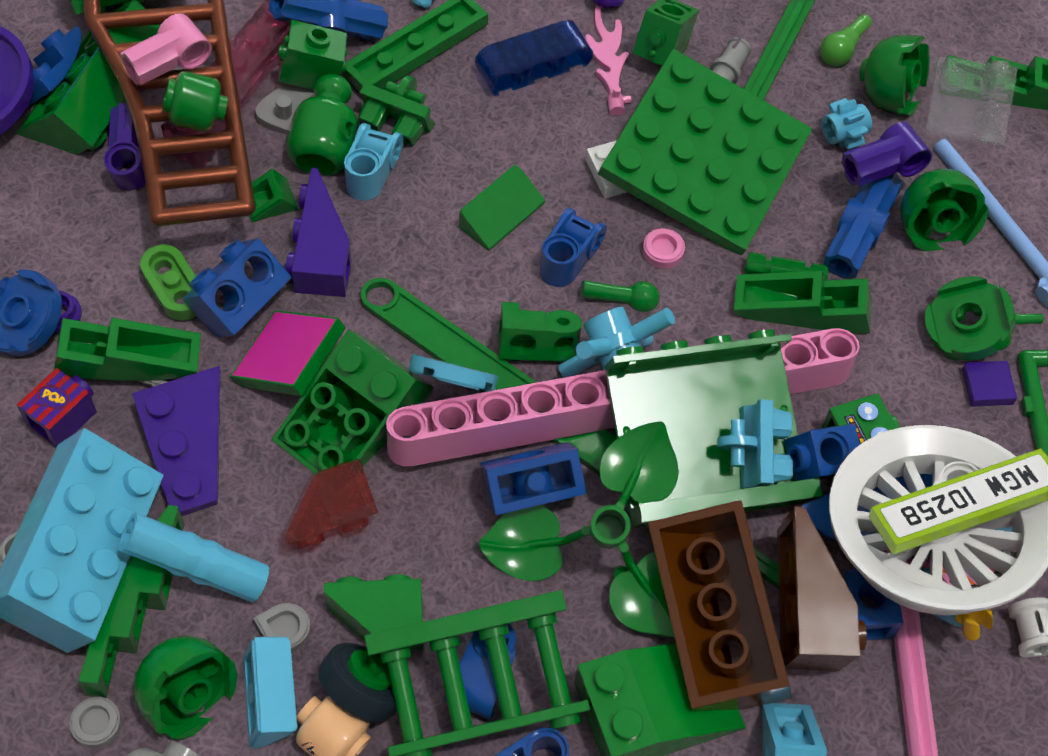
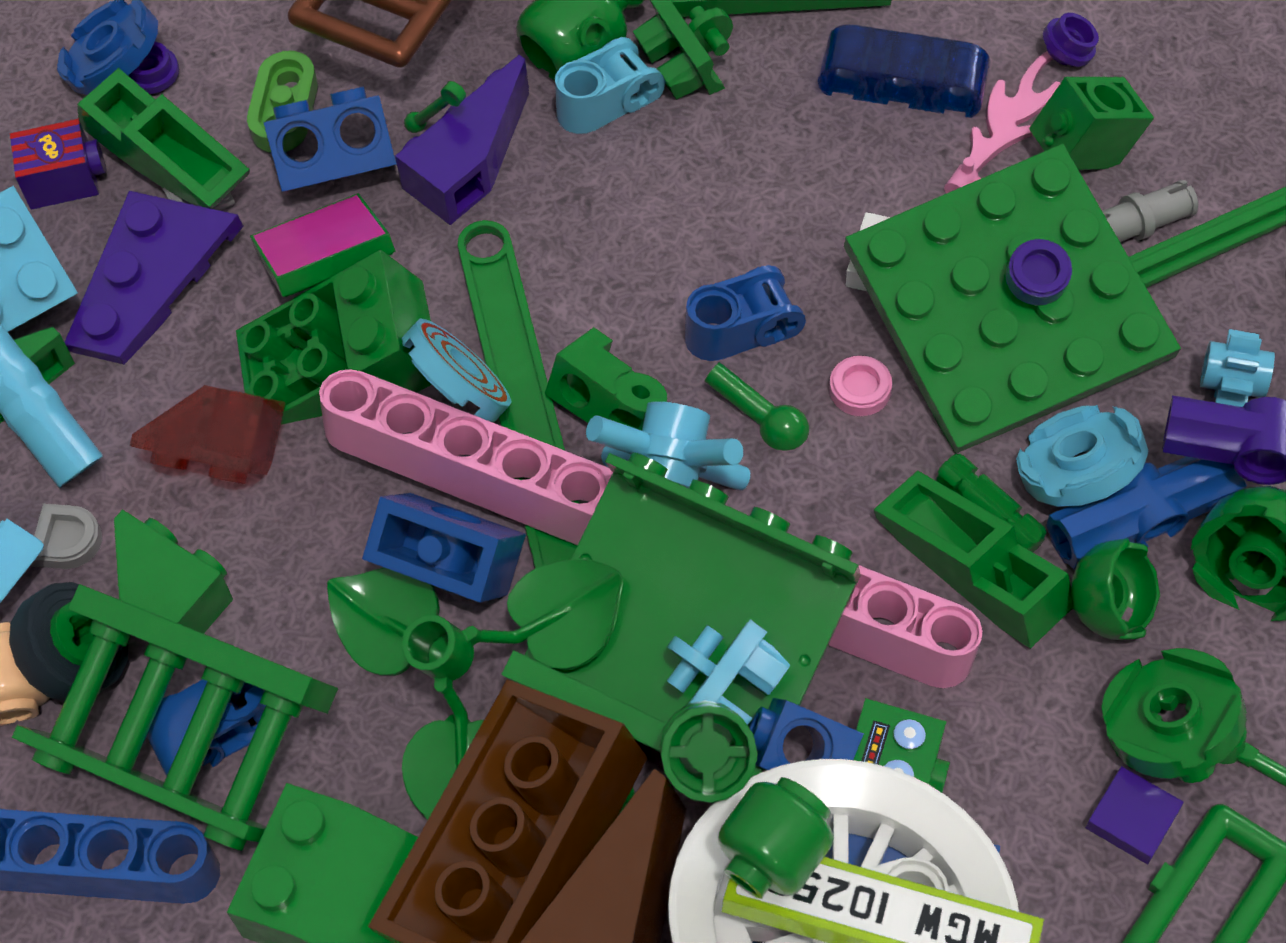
camera: 45 degrees right, 0 degrees up
(272, 196) = (466, 63): green slope -> none
(303, 212) = (451, 94): none -> green hinge
(500, 208) = (706, 223): green slope -> none
(720, 126) = (1038, 272): none -> dark purple tile
(800, 479) = (708, 751): none -> green wheel
(823, 230) = (1113, 460): none -> medium azure tile
(889, 274) = (1109, 582): none -> green hair
(901, 493) = (775, 838): none -> green head

